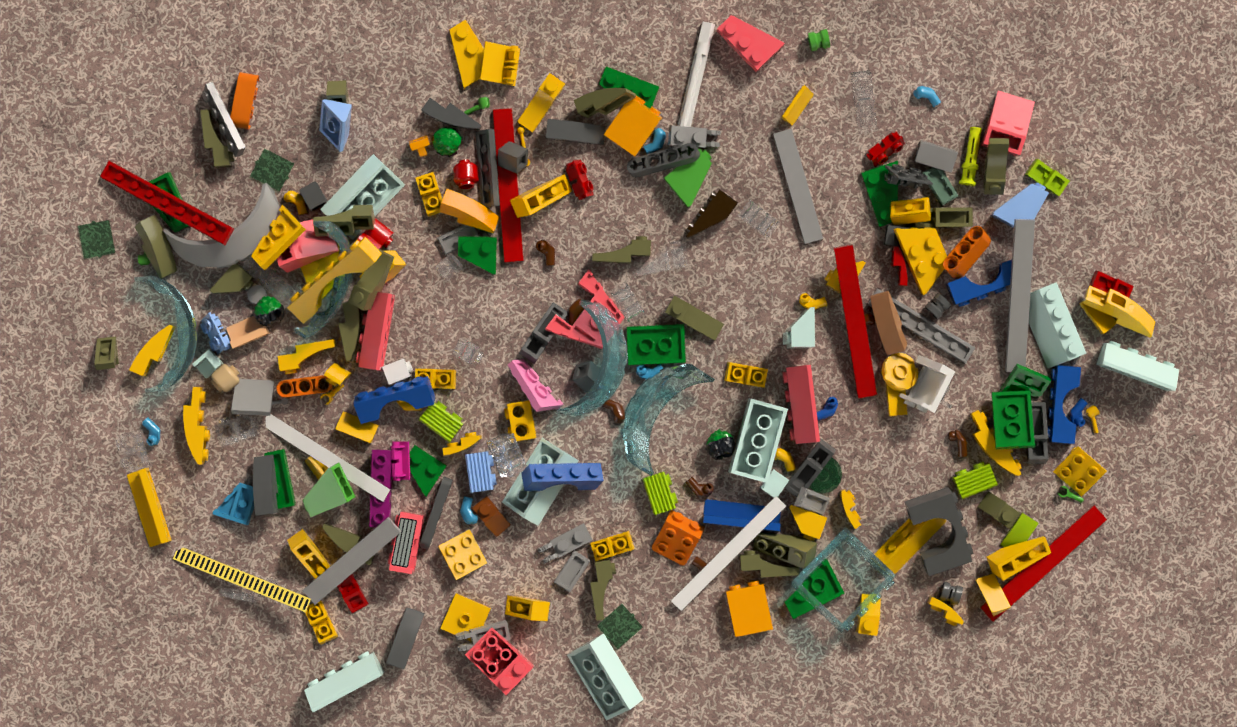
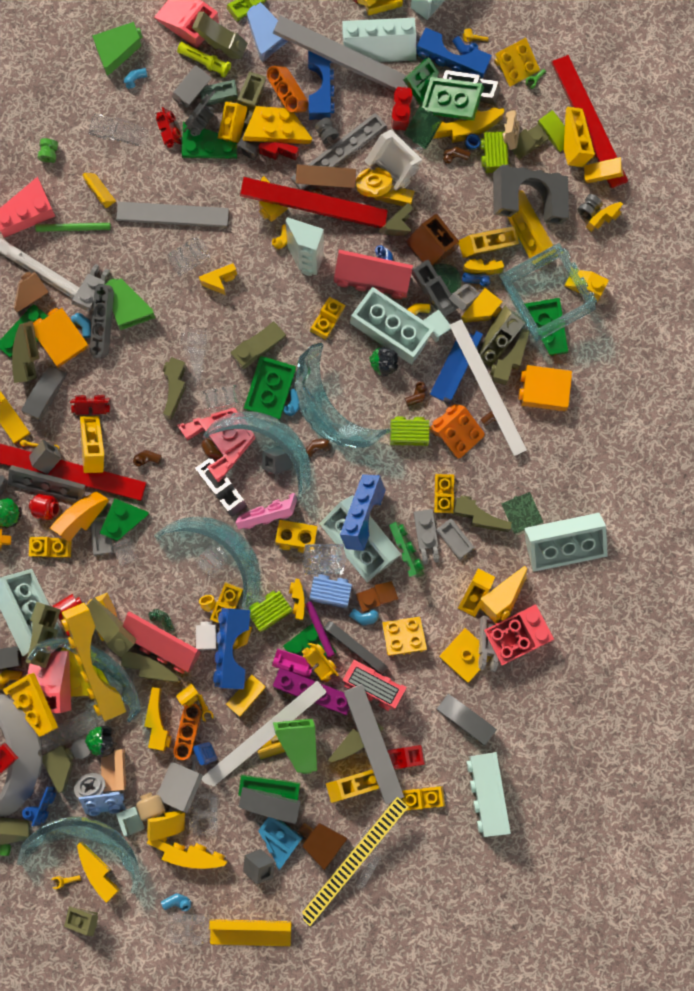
camera: 75 degrees left, 10 degrees down
(135, 323) = (65, 880): none -> yellow hand
(183, 278) = (39, 814): none -> blue hinge
(208, 494) = (258, 866): none -> dark grey panel
(213, 399) = (166, 826): none -> yellow slope
(230, 312) = (89, 780): none -> light grey gear
(248, 544) = (321, 843): none -> reddish brown torso
(290, 409) = (205, 753): none -> blue slope
(401, 325) = (163, 617): none -> clear green arm
(406, 491) = (325, 667): none -> yellow hinge
(429, 360) = (207, 603): none -> yellow hinge
(441, 473) = (319, 629): none -> magenta bar
(496, 358) = (232, 541): none -> clear light blue windscreen
(526, 634) = (501, 600): none -> yellow slope
(547, 528) = (399, 532): none -> green wing
(668, 78) = (28, 290): none -> medium nougat slope
(717, 211) = (167, 290): dark brown slope -> none
(744, 251) = (213, 279): none -> yellow slope
(750, 93) = (72, 227): none -> bright green bar
(838, 512) = (481, 279): none -> blue arm
(857, 450) = (433, 241): none -> reddish brown slope
(863, 407) = (396, 224): none -> olive slope
(877, 505) = (488, 241): none -> yellow slope
(953, 66) = (117, 45): none -> bright green slope
(973, 400) = (423, 127): none -> clear green piece
(981, 454) = (473, 139): none -> blue hinge
(982, 373) = (401, 108): none -> red brick
(1000, 490) = (511, 130): none -> tan hinge

